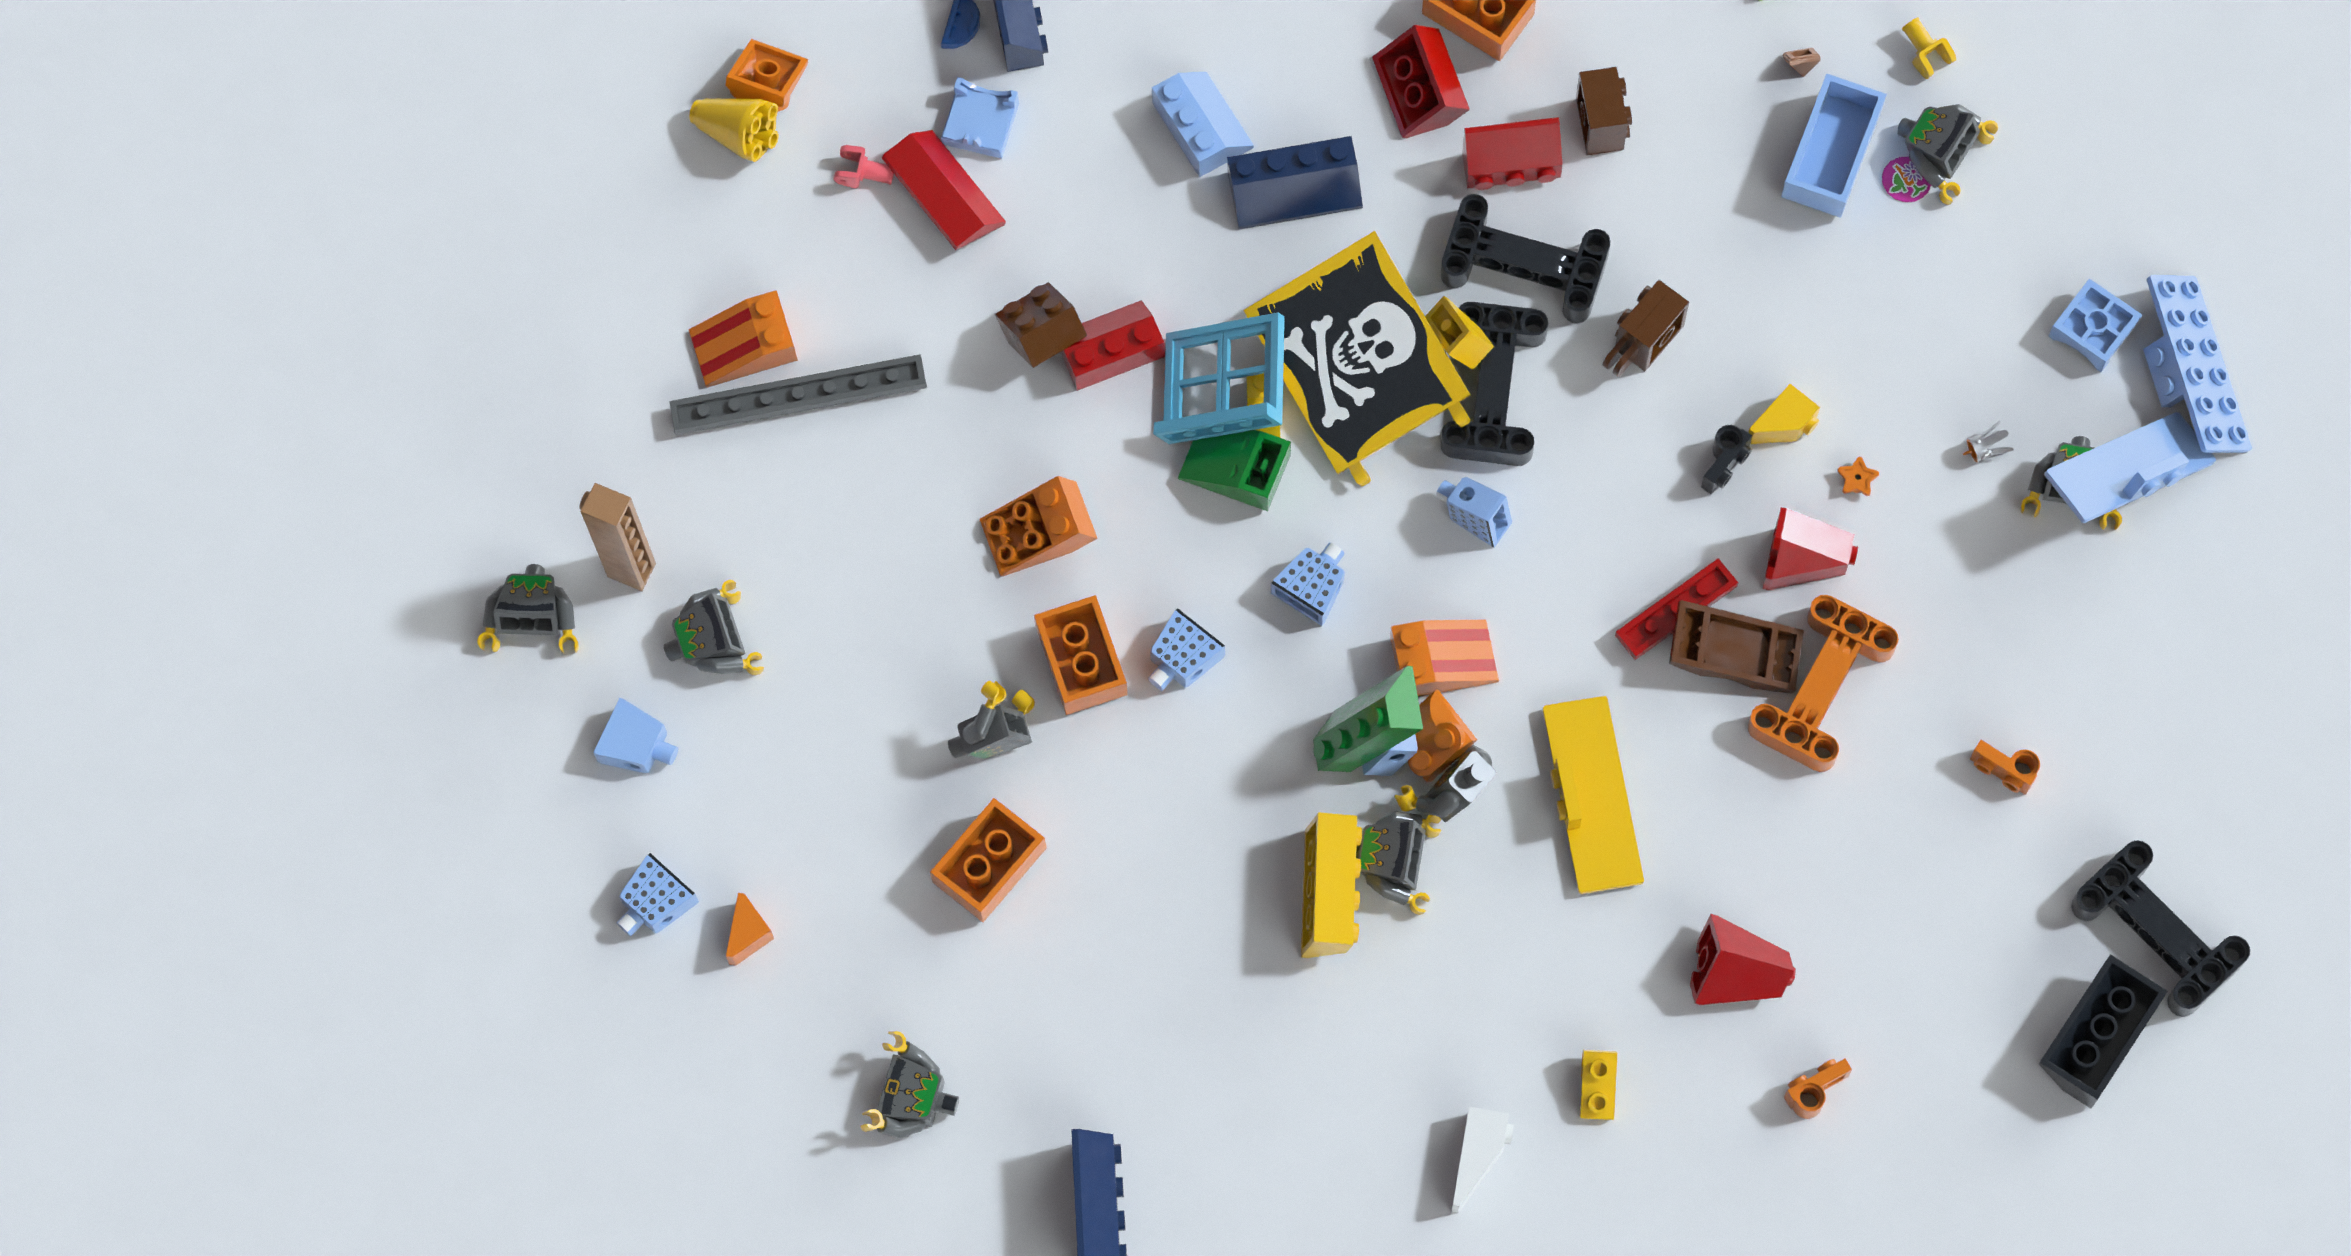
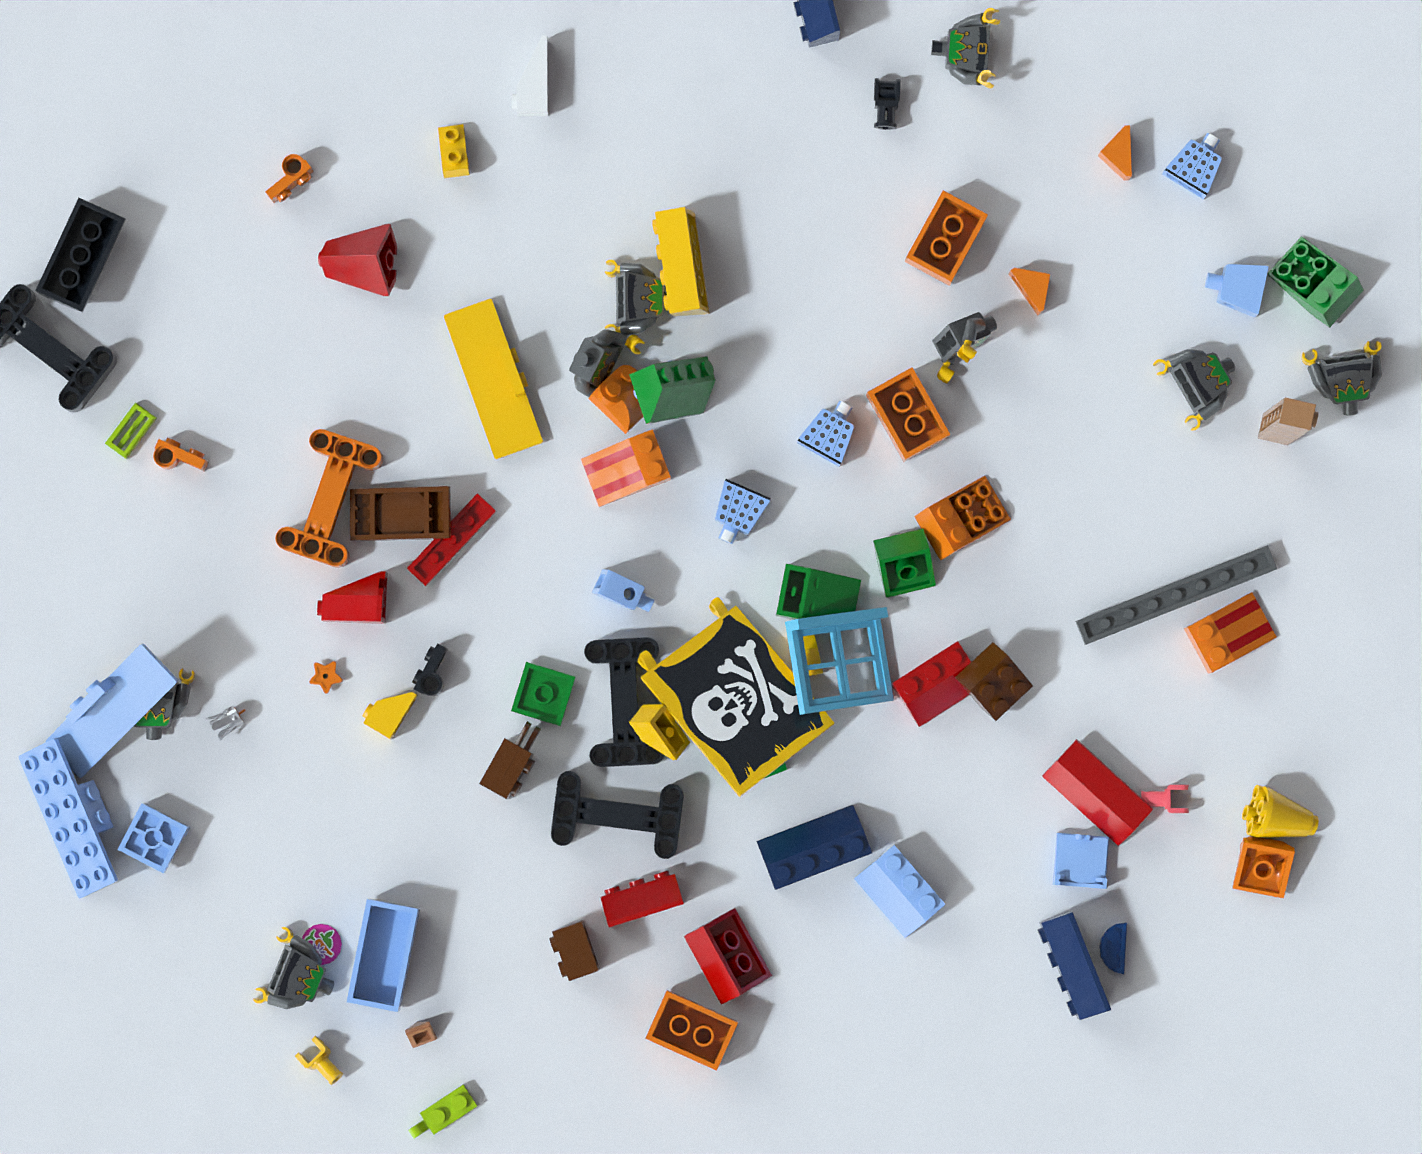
camera: 165 degrees right, 15 degrees up
(539, 732) = (1316, 281): none -> green slope
(891, 787) = (1032, 286): none -> orange slope
(1027, 1052) = (886, 99): none -> black connector
(1120, 487) = (904, 563): none -> green slope
(1592, 410) = (543, 694): none -> green plate
(2045, 830) = (144, 413): none -> lime tile

